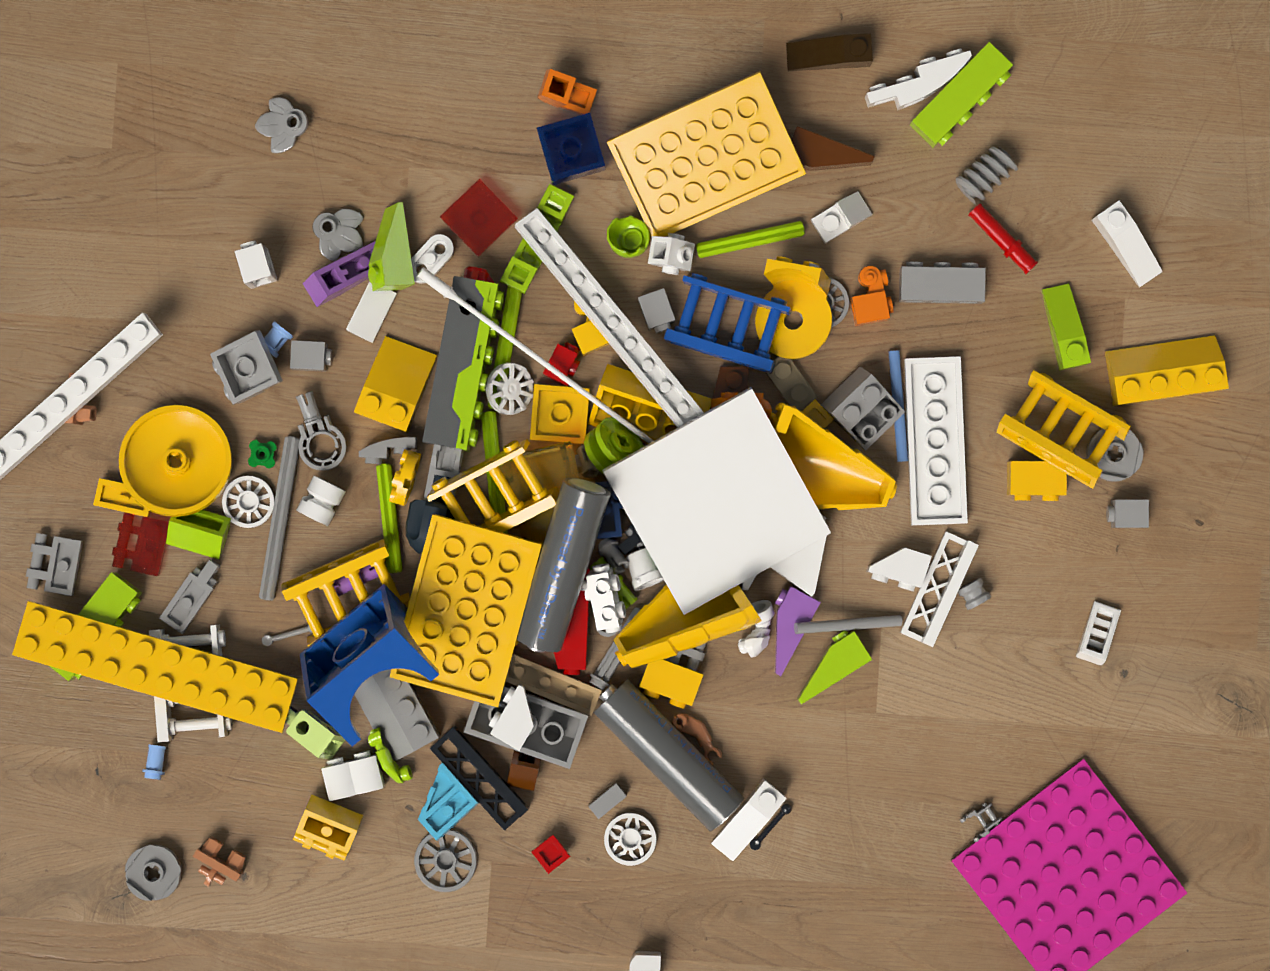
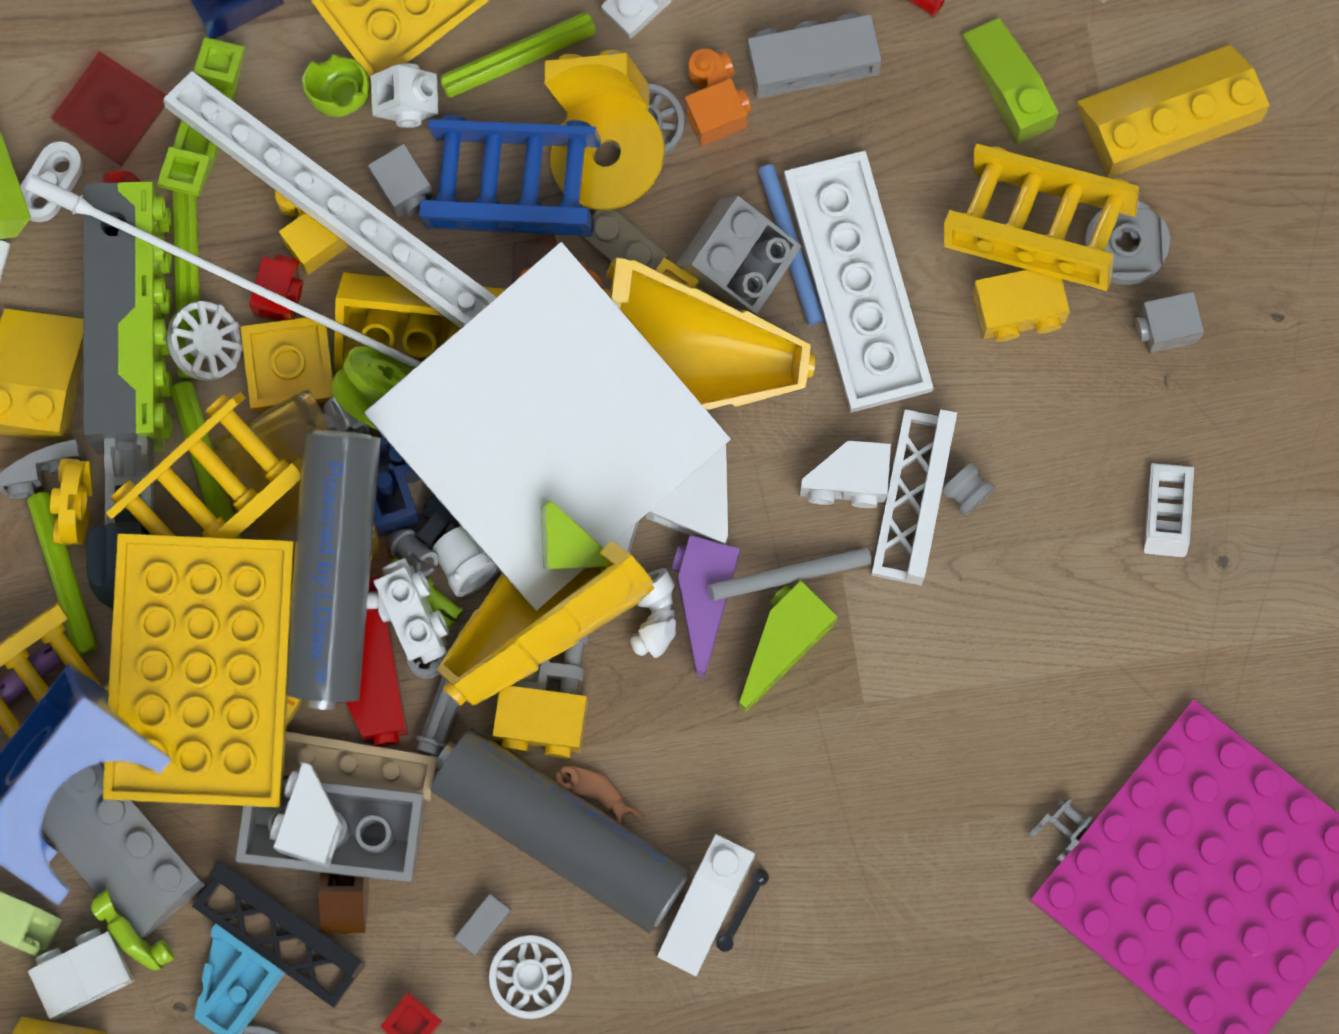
camera: 10 degrees left, 10 degrees down
(712, 581) = (566, 542): none -> lime slope

